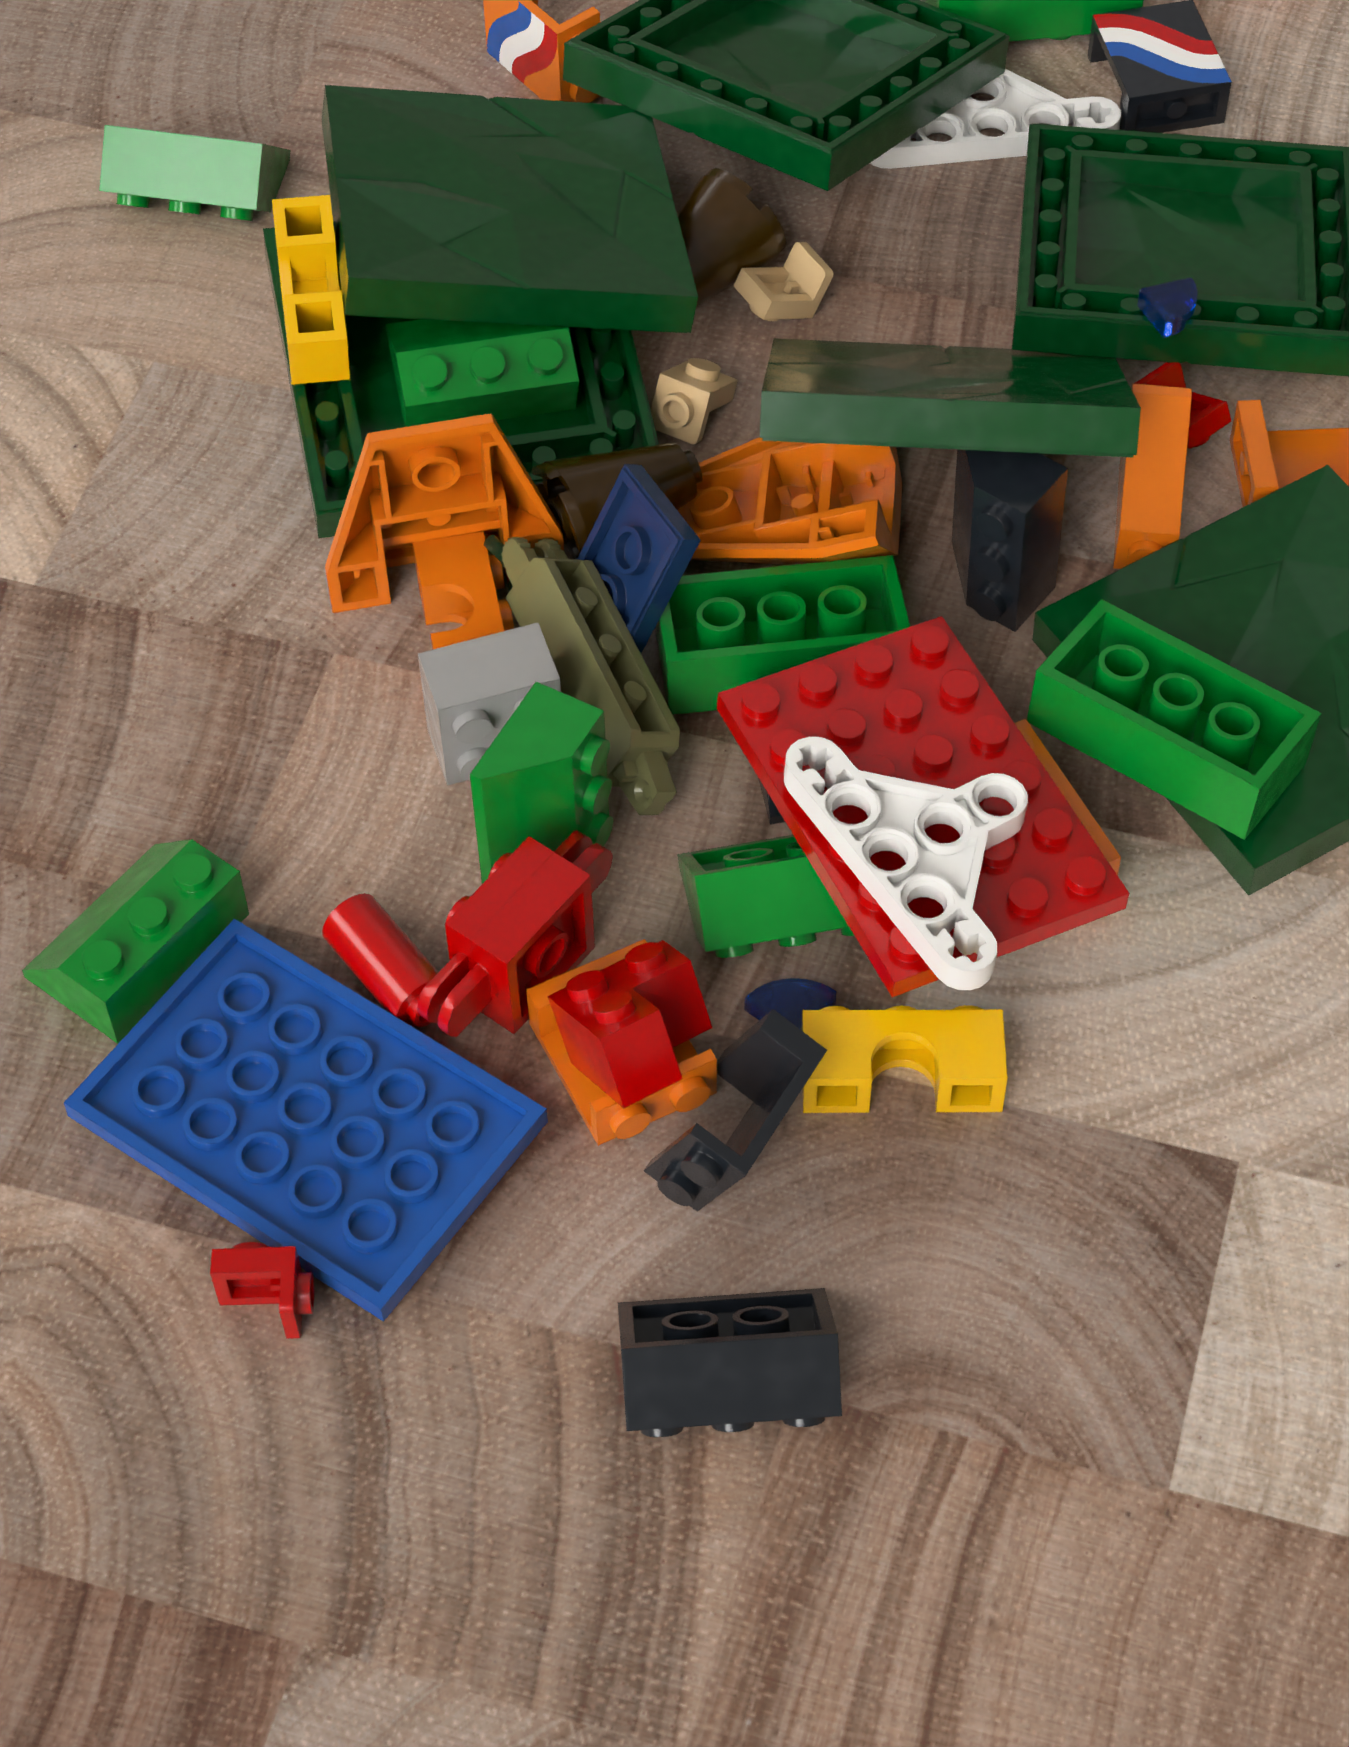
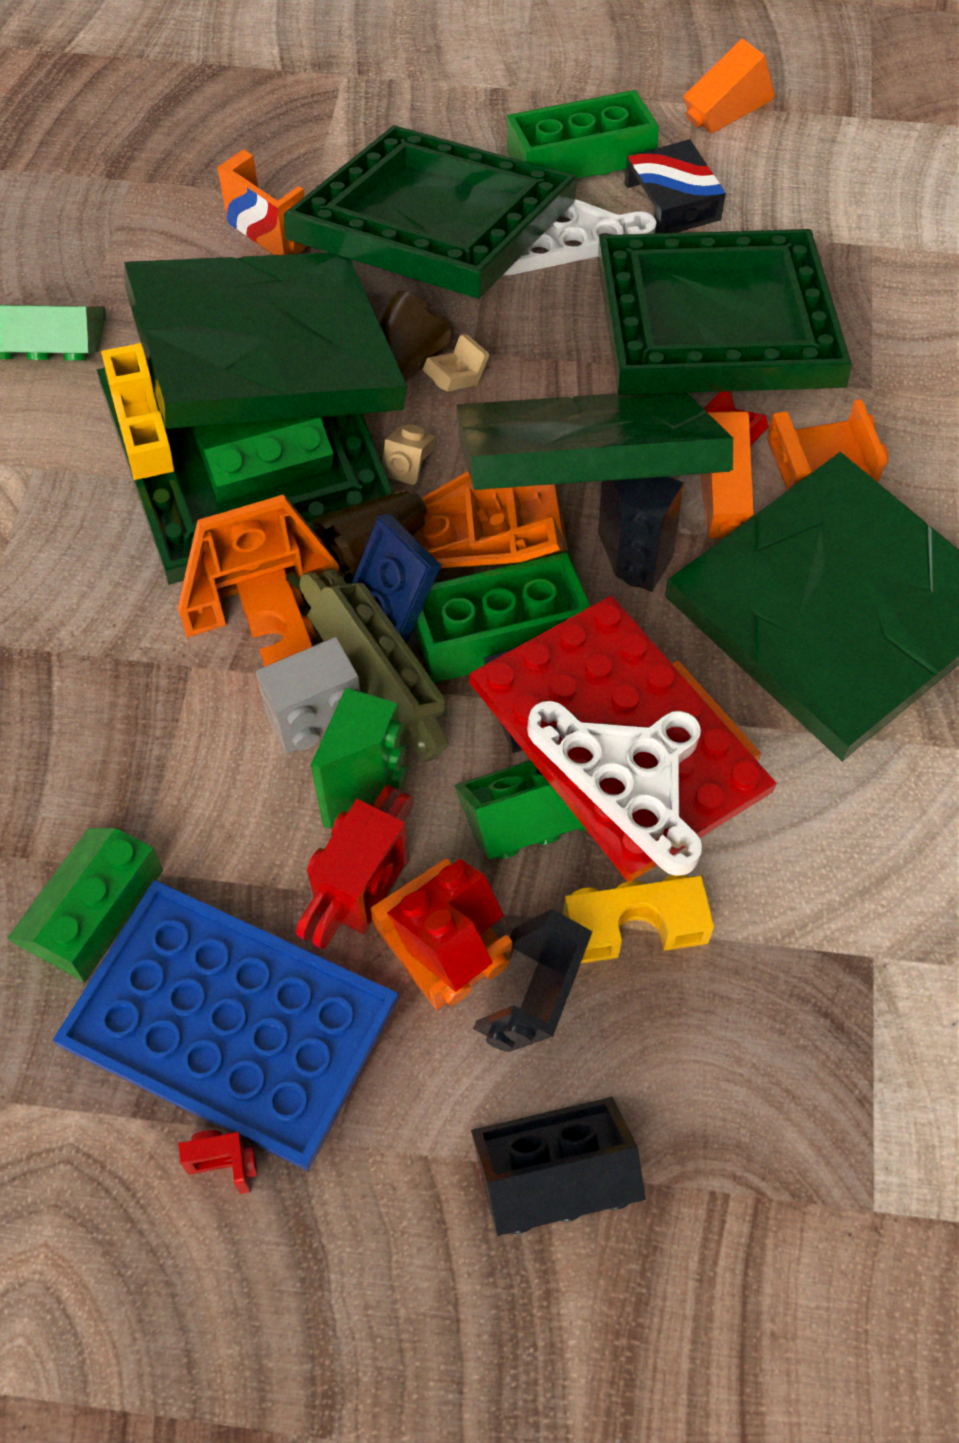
camera: 10 degrees left, 5 degrees up
(380, 955) = (263, 894): red brick -> none
(789, 998) = (551, 886): clear blue tile -> none
(1169, 305) = (721, 354): clear blue tile -> none
(1172, 718) = (778, 648): green brick -> none

